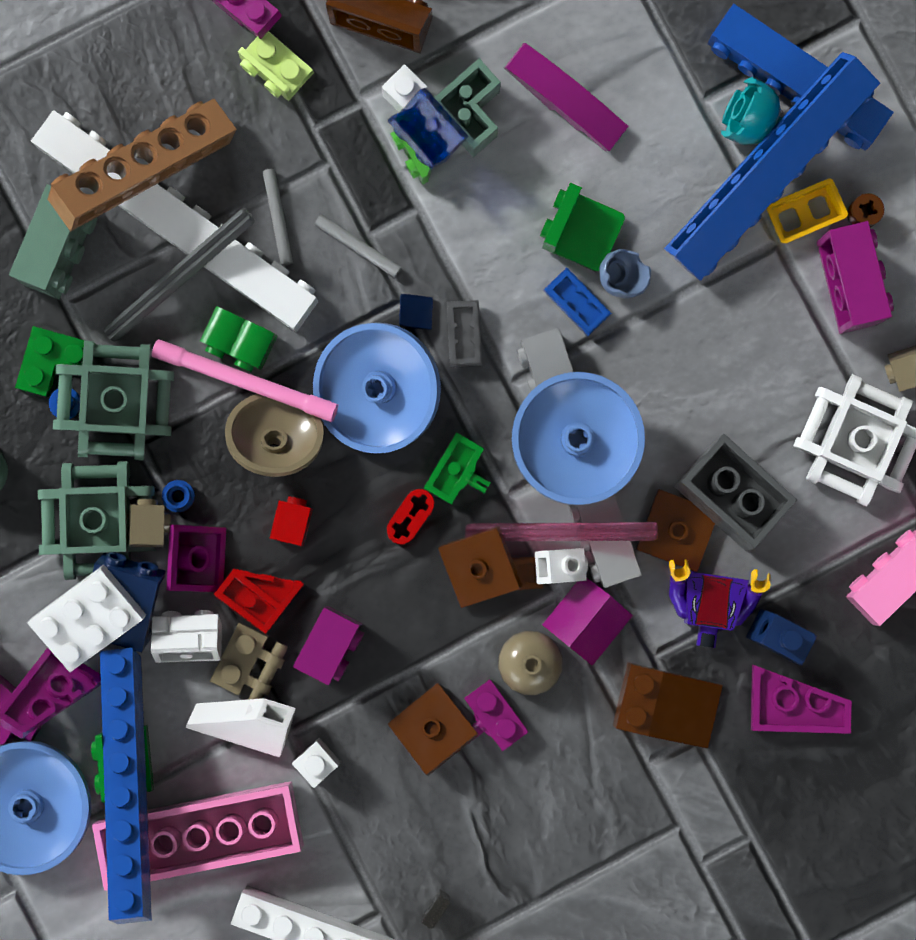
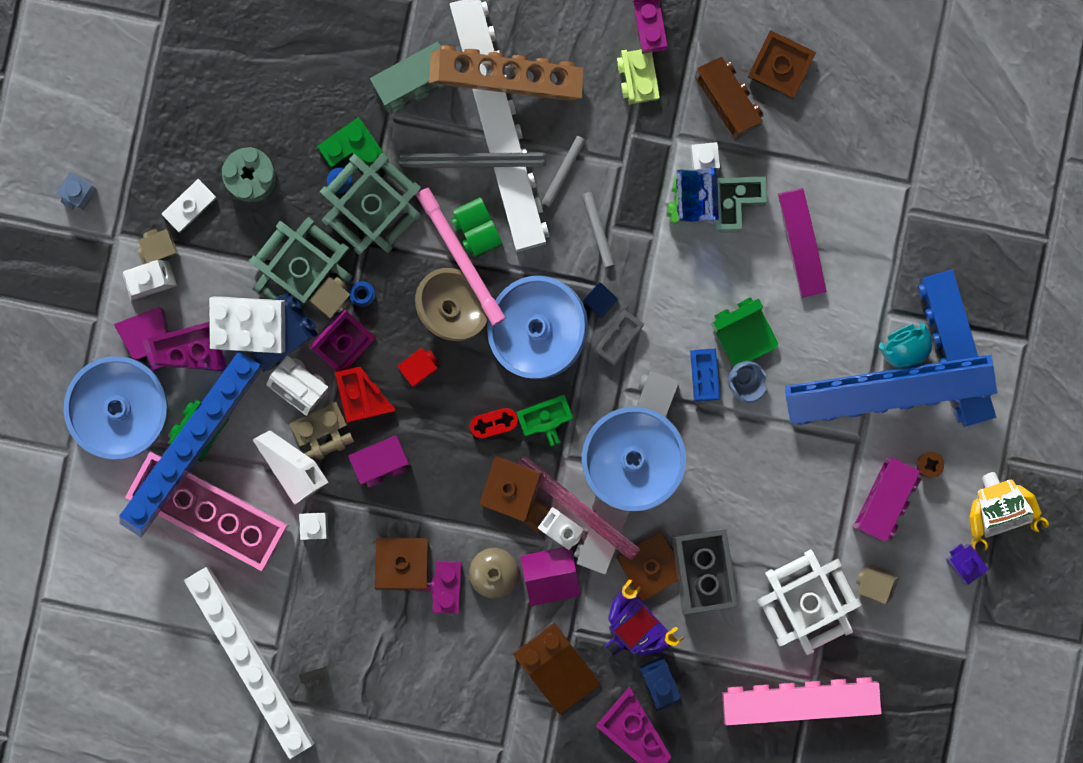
camera: 45 degrees right, 0 degrees up
(799, 202) = (894, 426): yellow piece -> none

